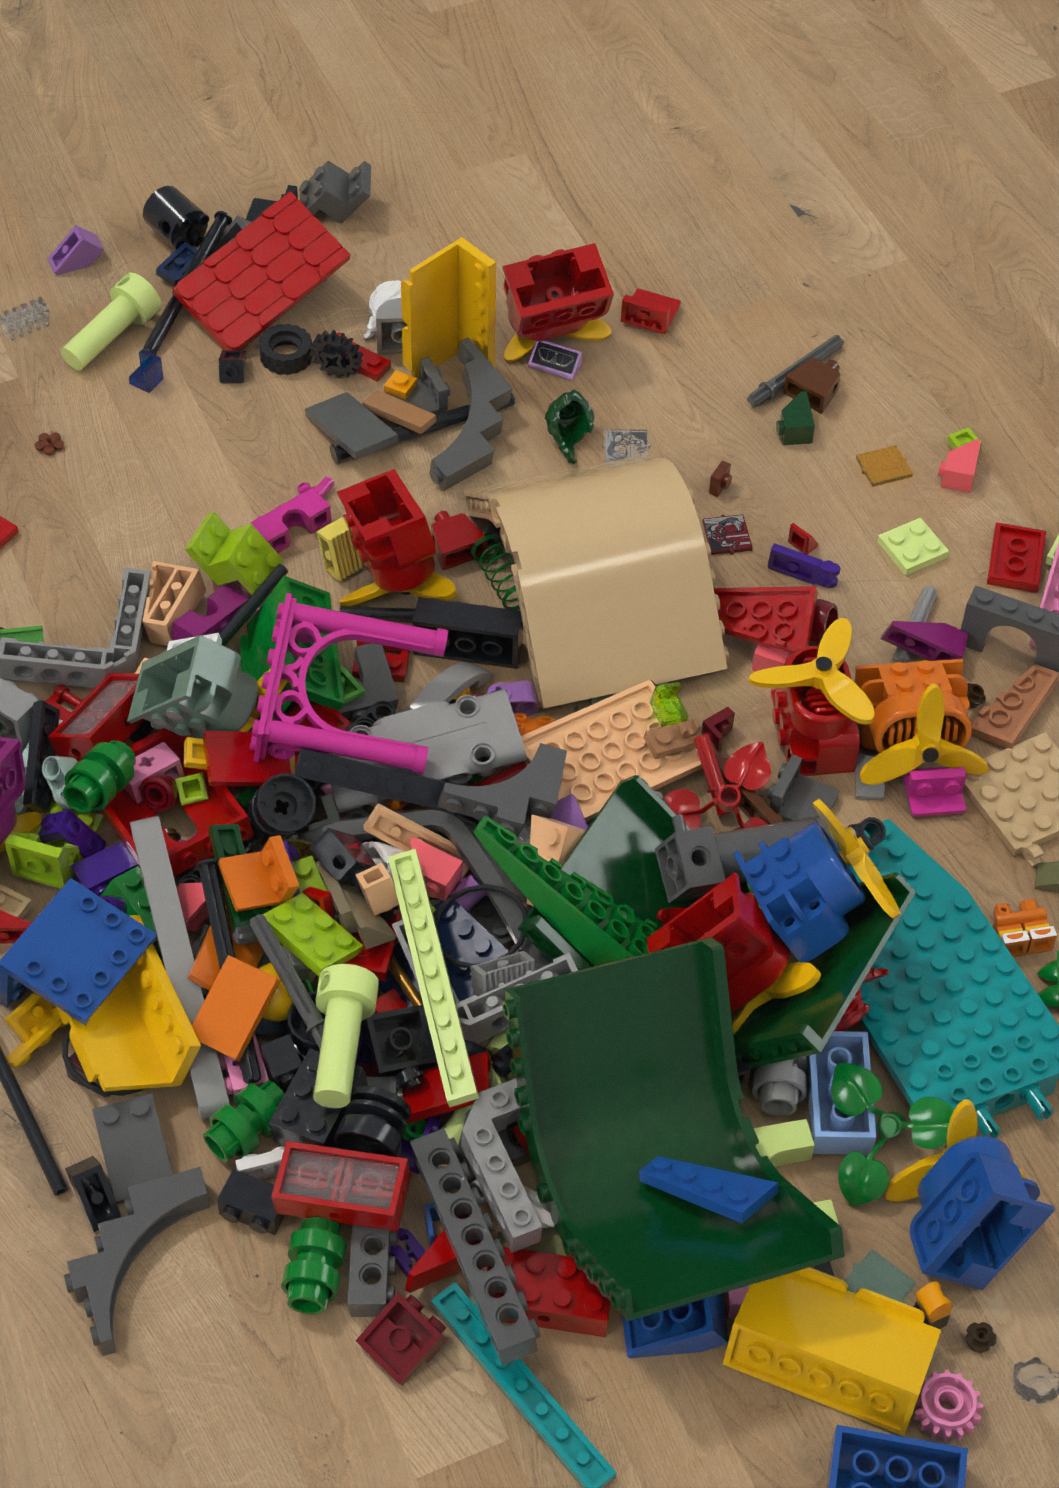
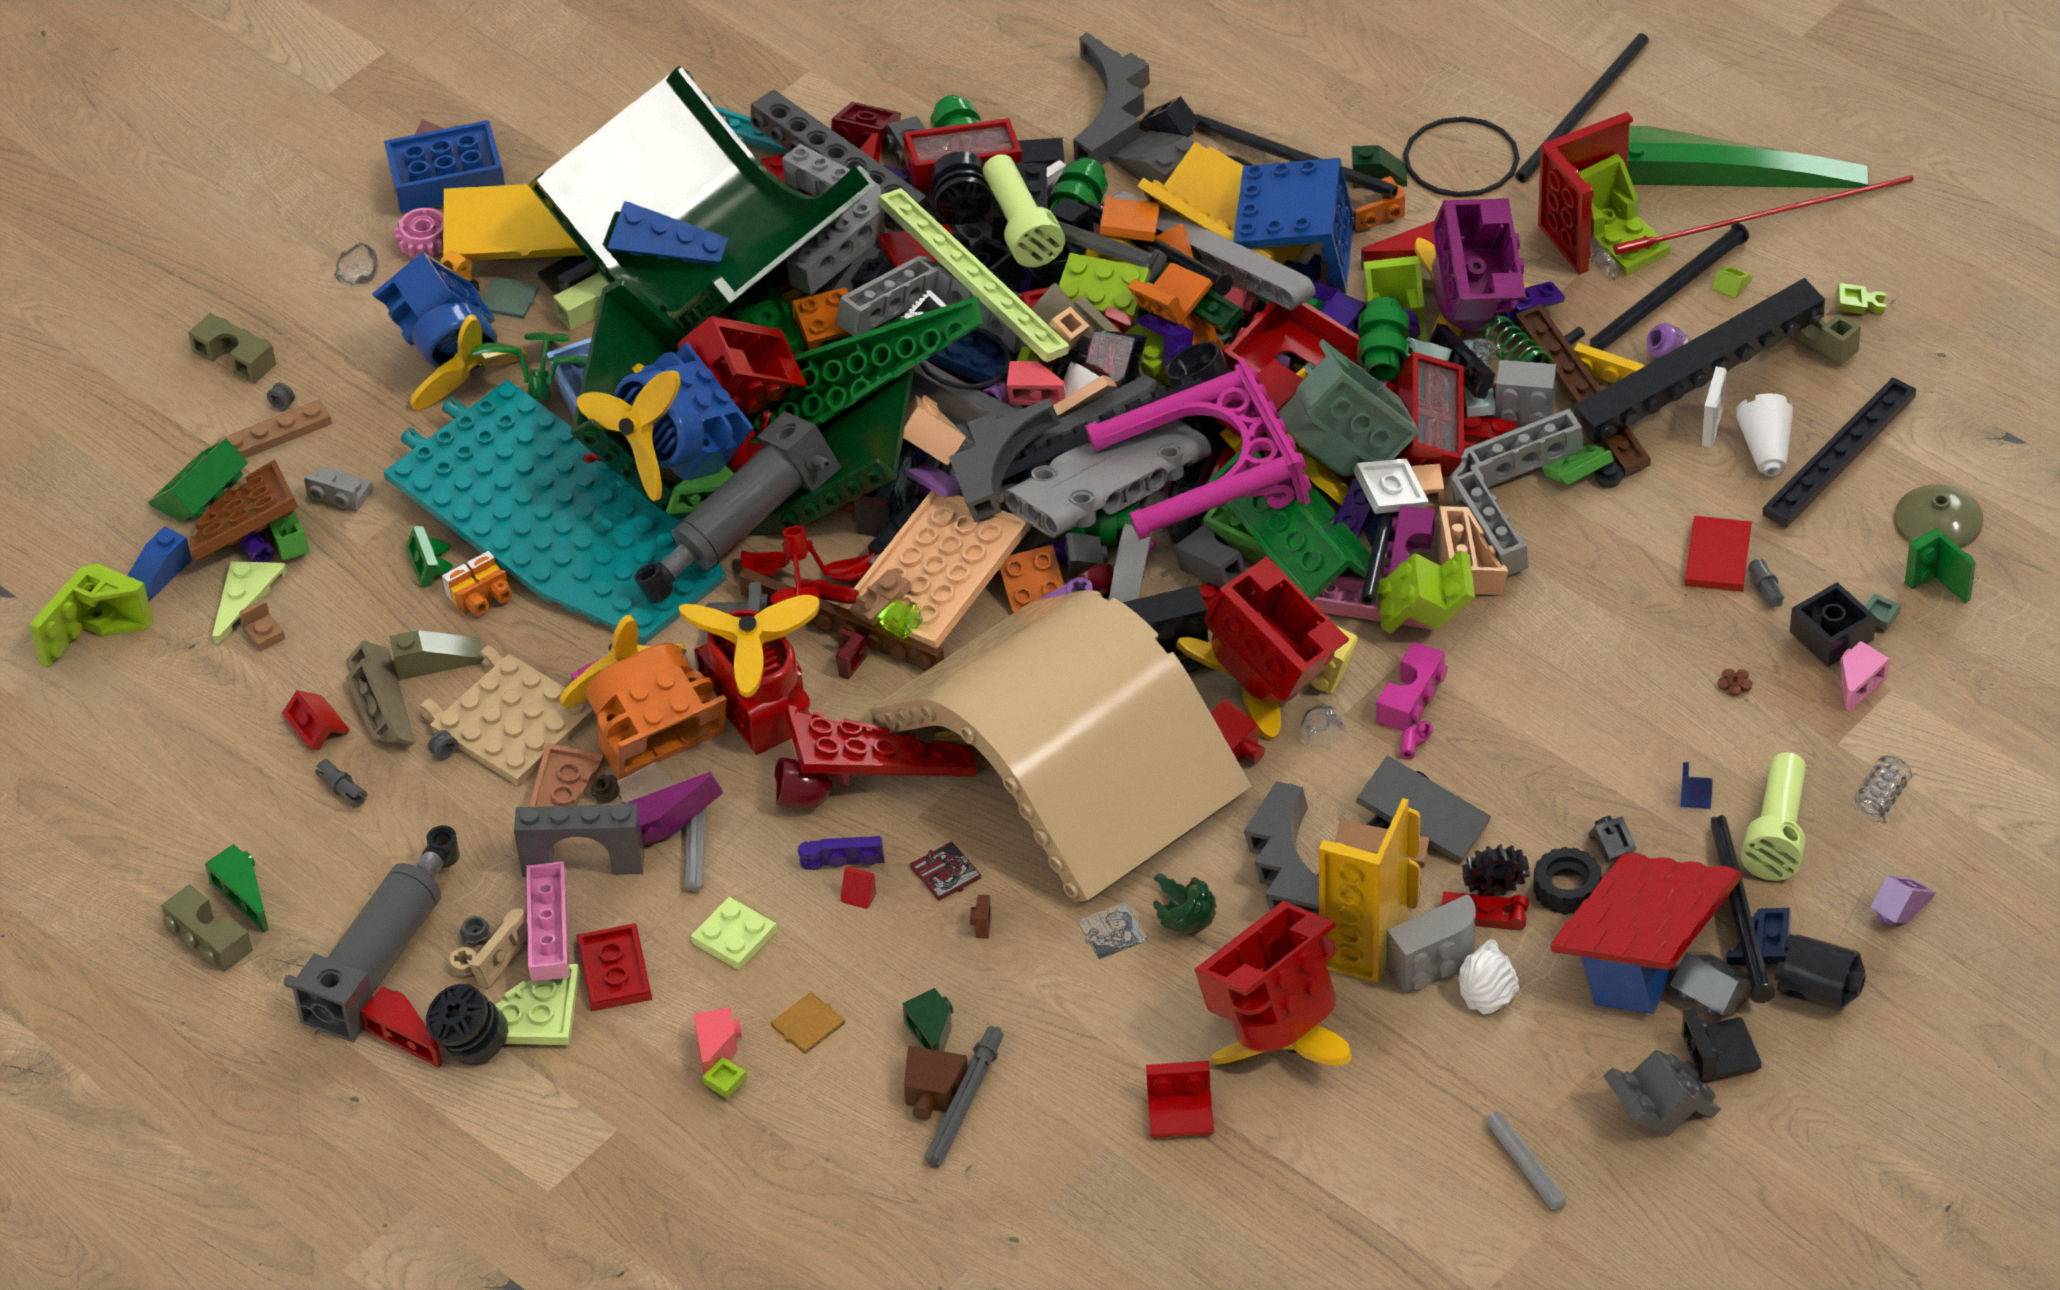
camera: 160 degrees right, 5 degrees down
(445, 204) = (1526, 1160): none -> light grey axle

